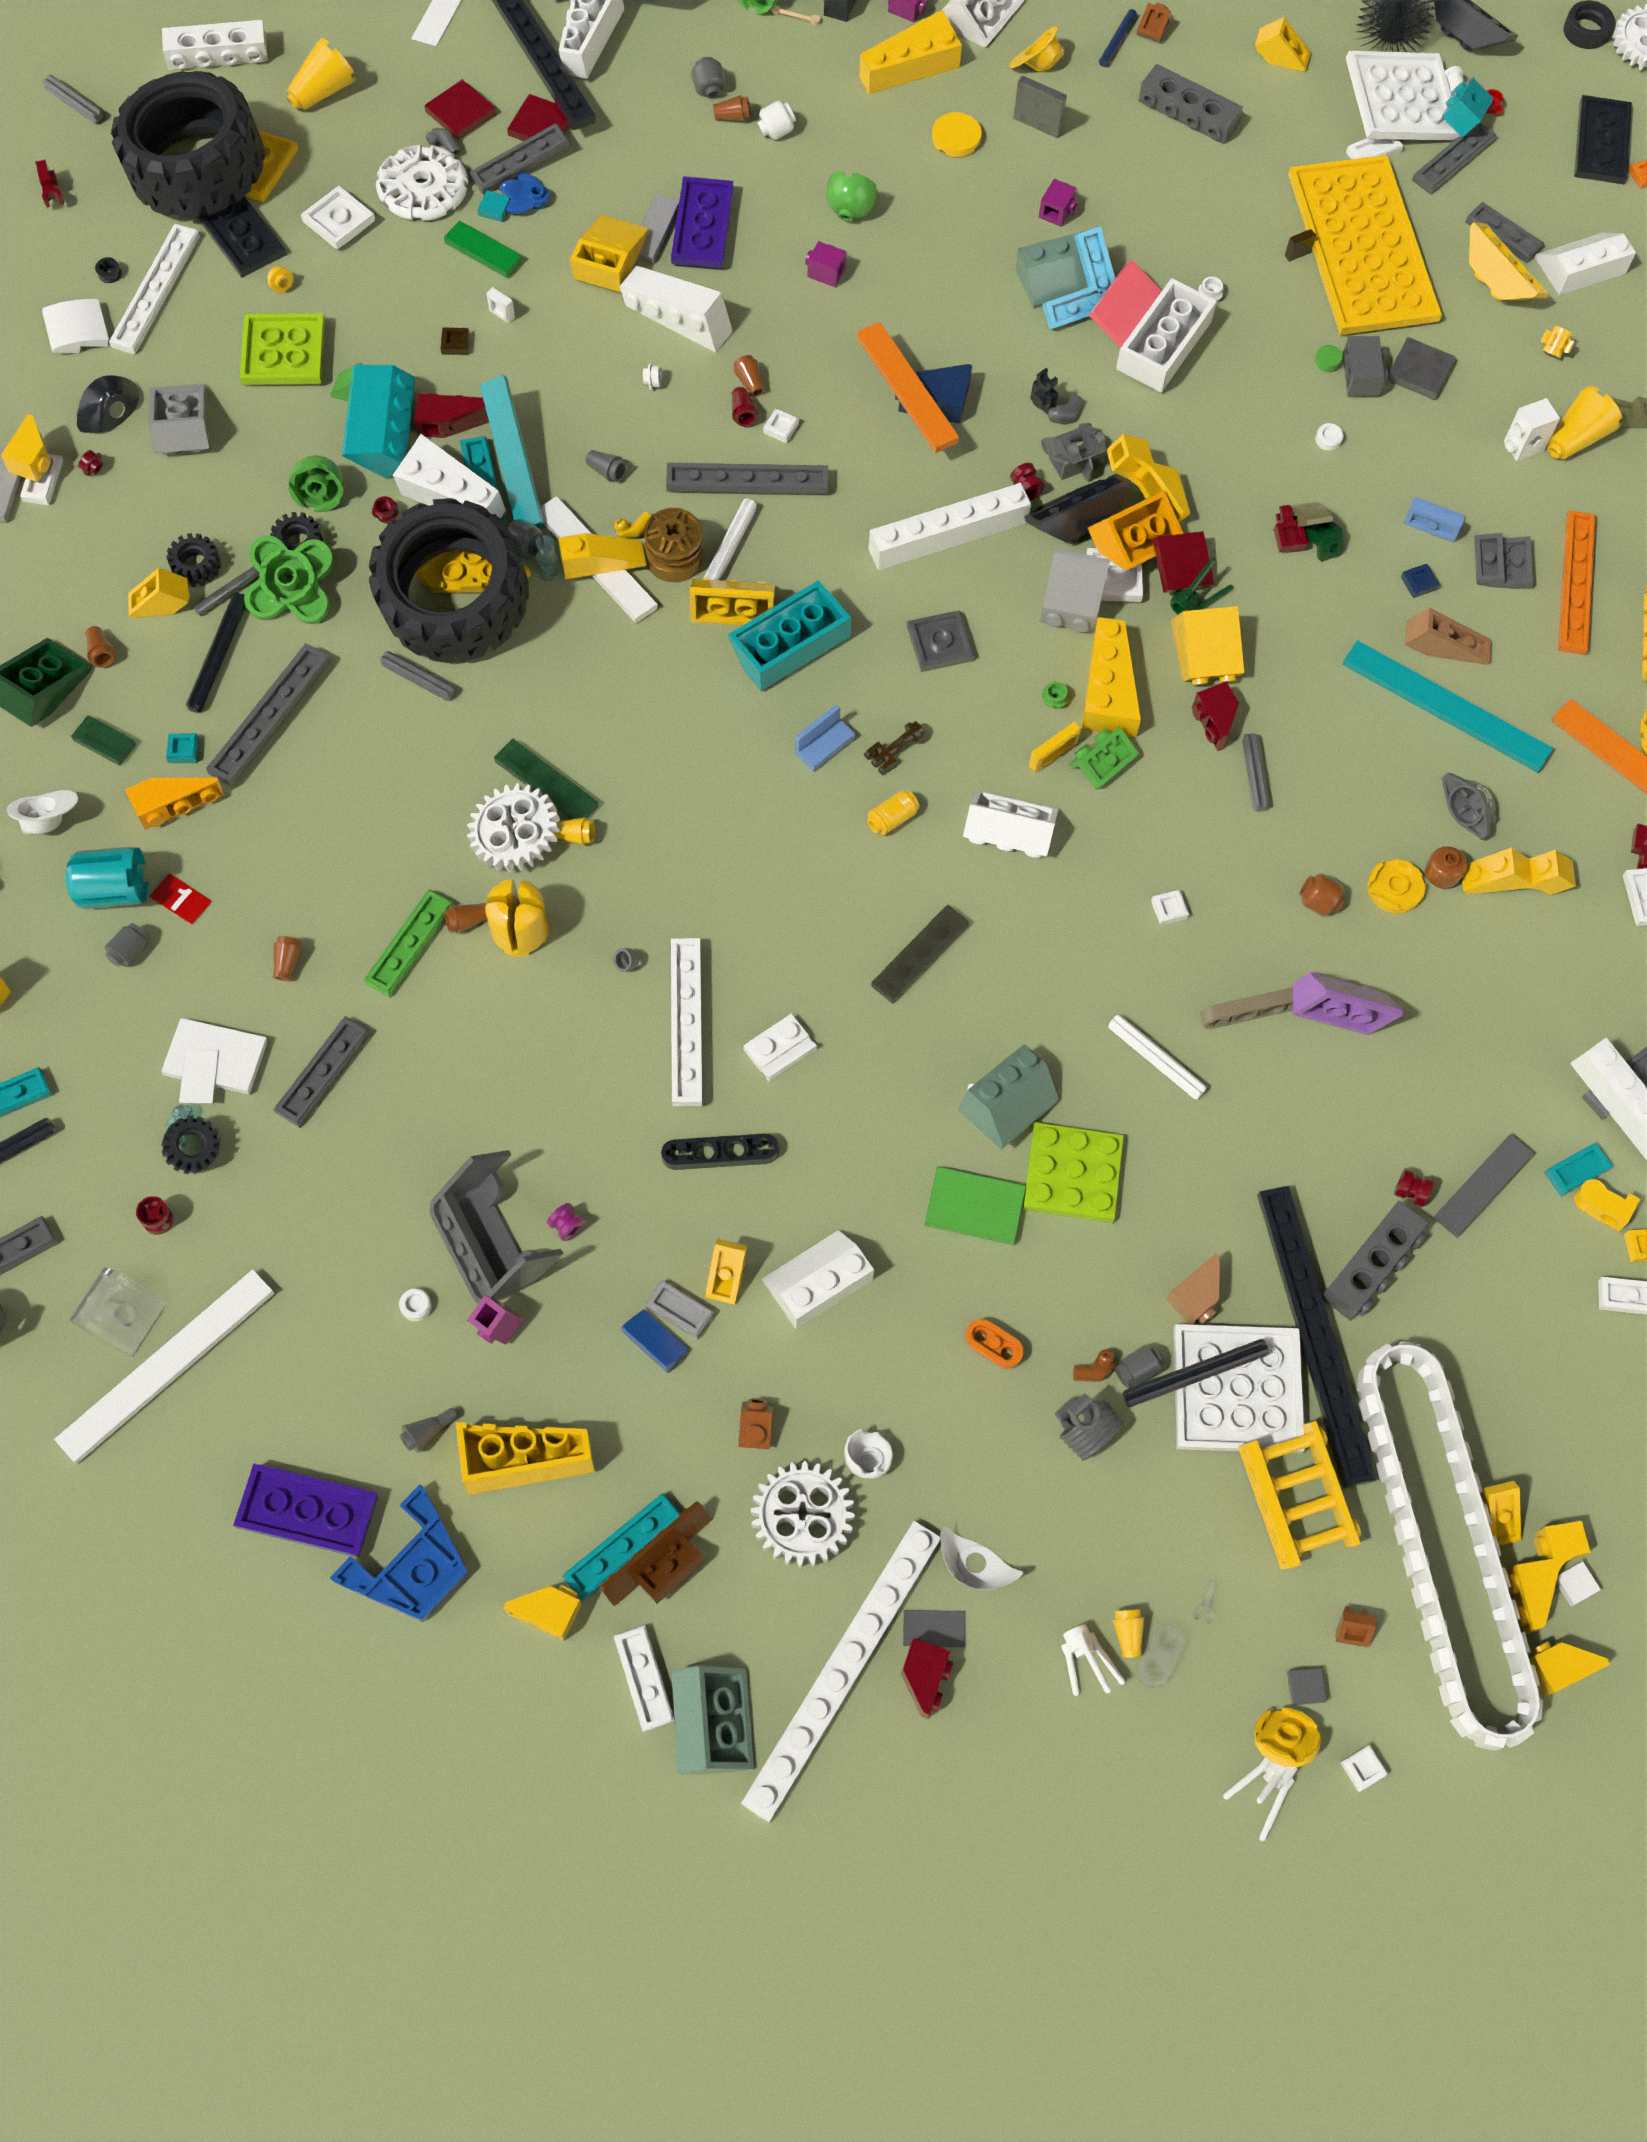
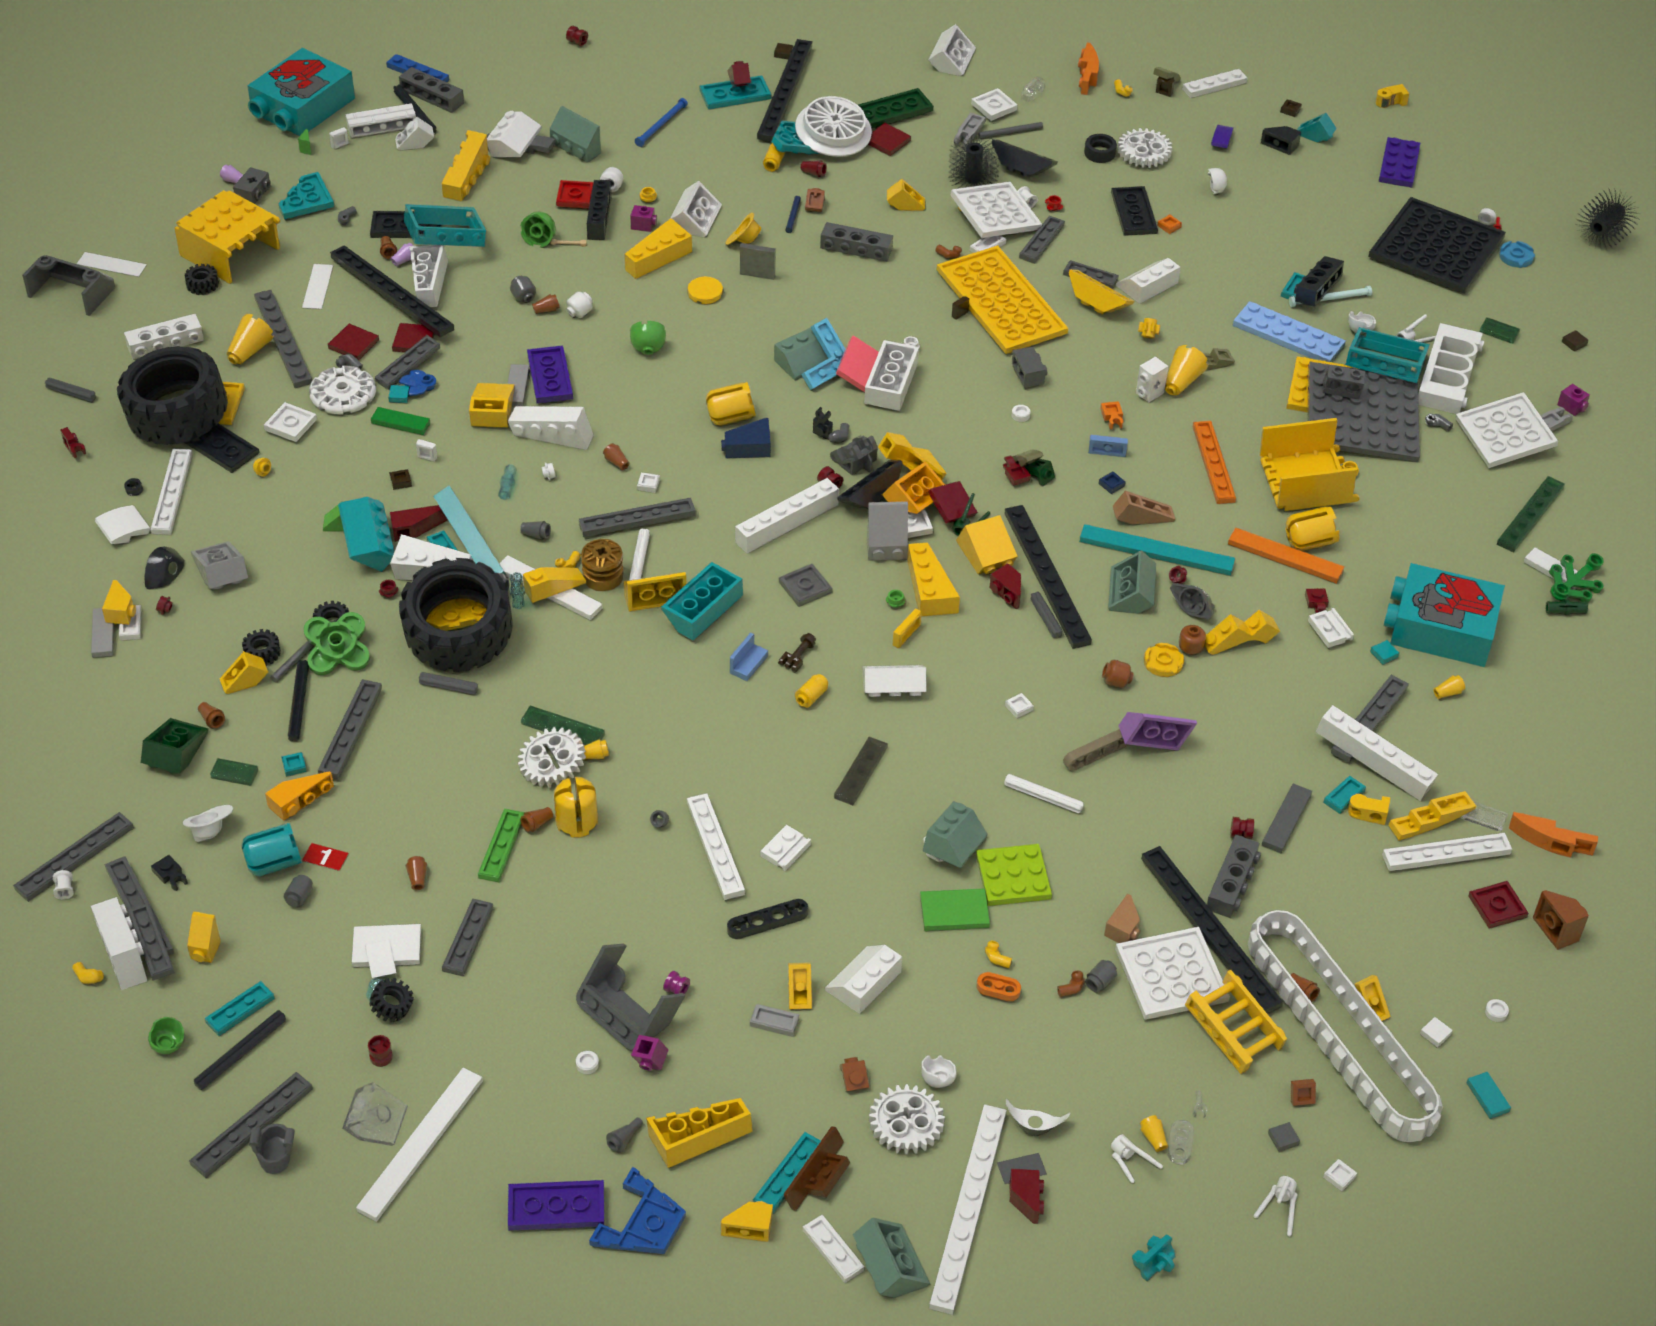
camera: 15 degrees left, 20 degrees down
(282, 348) = (279, 508): lime plate -> none
(316, 483) = (335, 581): bright green cylinder -> none
(370, 83) = (283, 339): none -> dark grey plate
(592, 380) = (507, 482): none -> clear light blue pin
(654, 1340) = (763, 1043): blue slope -> none
(743, 409) = (619, 477): dark red cone -> none
(826, 263) = (644, 381): magenta brick -> none
(907, 387) = (730, 438): orange tile -> none
(928, 329) = (730, 404): none -> yellow cylinder
(1005, 1293) = (995, 956): none -> yellow arm
(1058, 202) = (789, 315): magenta brick -> none
(1069, 1828) = (1157, 1258): none -> teal hips
(1097, 1428) = (1083, 1017): dark grey piece -> none
(1105, 756) = (943, 626): bright green bracket -> none
(1195, 1373) = (1140, 967): black axle -> none
(1278, 711) = (1048, 577): none -> black plate
(1287, 1737) = (1282, 1165): yellow tile -> none
(1315, 152) = (955, 253): none -> dark orange arm
(1328, 358) = (1003, 368): bright green tile -> none
(1392, 755) = (1132, 584): none -> sand green slope
(1415, 1465) = (1308, 987): none -> dark orange cone
(1420, 368) = (1066, 362): flat silver tile -> none
(1455, 756) = (1173, 574): none -> dark red plate
(1459, 468) = (1113, 413): none -> orange plate
(1467, 106) = (1039, 207): teal brick -> none
(1503, 561) = (1162, 460): dark grey slope -> none
(1535, 1581) = (1414, 1012): yellow arch -> none
(1563, 1665) = (1448, 1077): yellow slope -> none
(1616, 1704) = (1488, 1095): none -> teal tile

